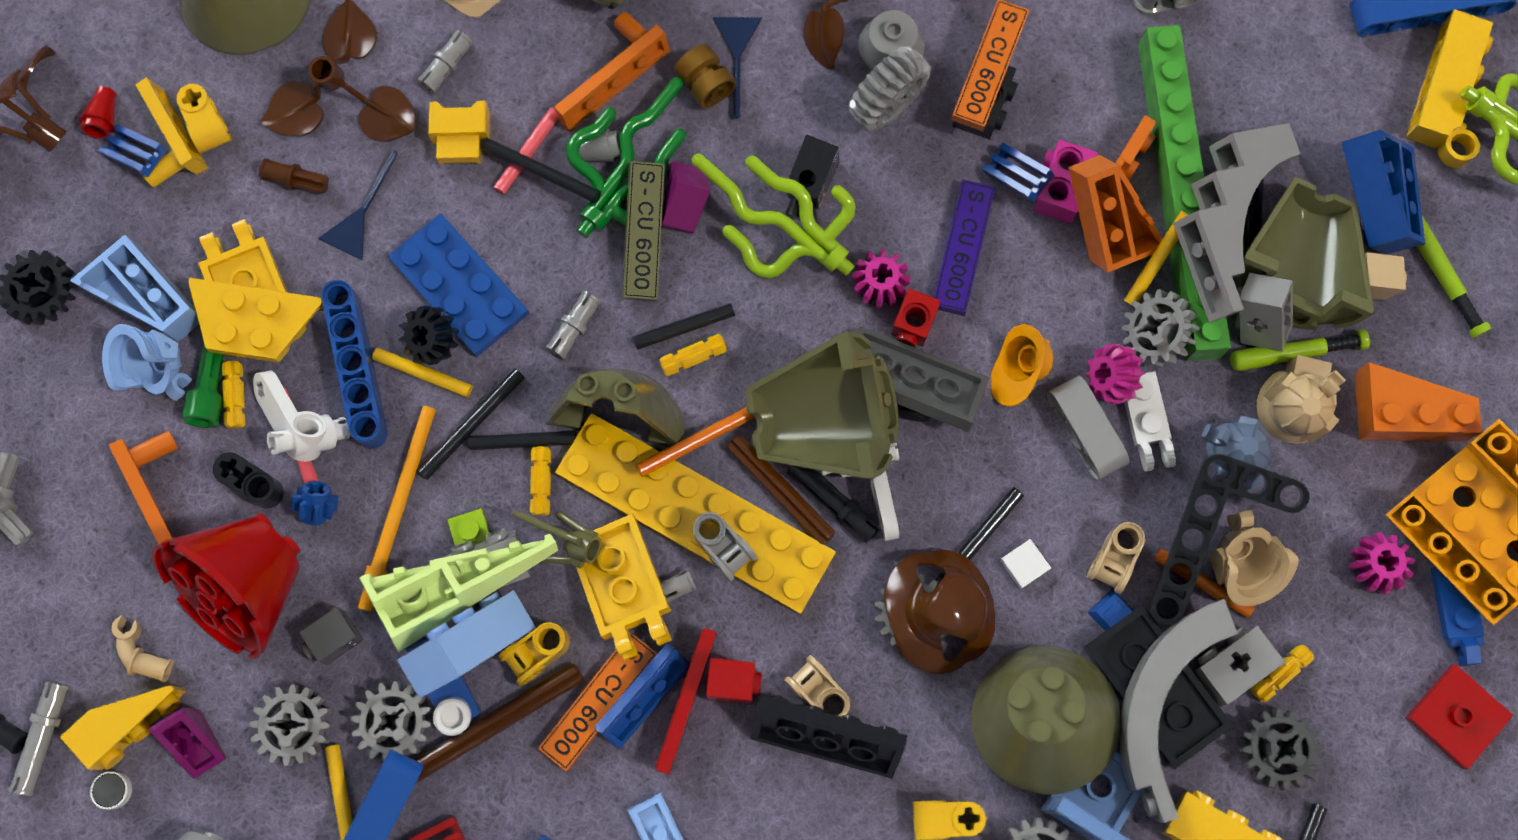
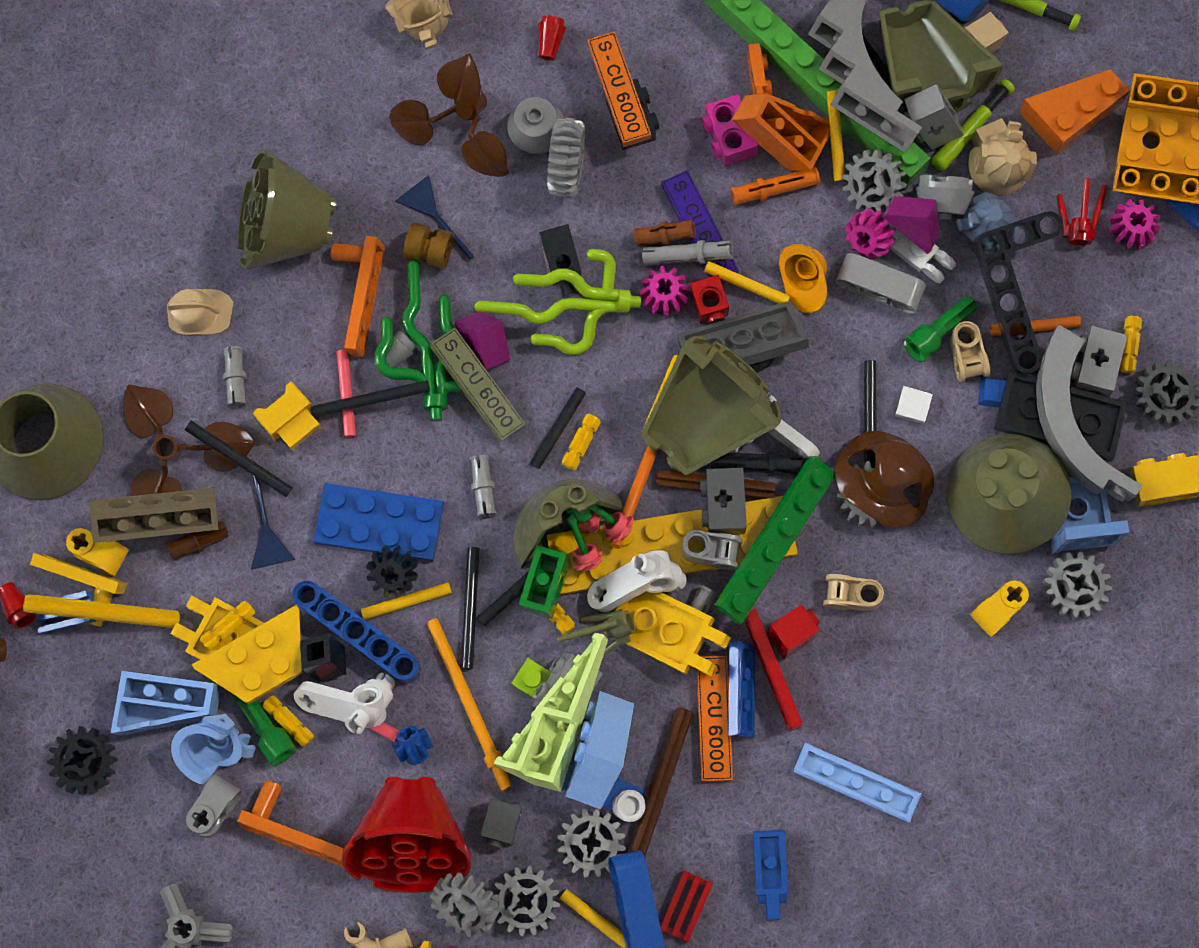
camera: 35 degrees left, 0 degrees up
(110, 415) = (215, 804): none -> light grey piece
(154, 170) = (100, 611): none -> yellow axle
(232, 682) = (464, 904): none -> light grey gear
(249, 268) = (227, 625): none -> yellow axle
(251, 483) = (345, 777): black beam -> none
(269, 123) = (153, 515): none -> dark tan brick
(304, 362) = (323, 657): none -> black brick
(385, 133) = (238, 458): none -> black bar
(533, 652) = (646, 722): yellow piece -> none
(545, 452) = (544, 582): none -> green brick
(643, 518) = (647, 572): none -> white piece
(652, 454) = (616, 527): none -> coral plant
(787, 583) = (775, 540): none -> green plate
(788, 500) = (727, 484): none -> dark grey brick
(828, 736) = (883, 615): black plate -> none
(926, 227) = (665, 233): none -> dark orange pin
(940, 267) = (697, 252): none -> light grey pin
(962, 329) = (746, 283): none -> yellow piece
(1000, 161) = (674, 149): blue tile -> none
(1063, 263) = (765, 188): none -> orange pin
(1087, 512) = (927, 338): none -> green piece
(1167, 393) = (915, 219): none -> magenta slope
(1216, 393) = (950, 192): none -> light grey cone
(1252, 562) = (1055, 287): tan helmet -> none
(1322, 528) = (1080, 230): none -> red plant

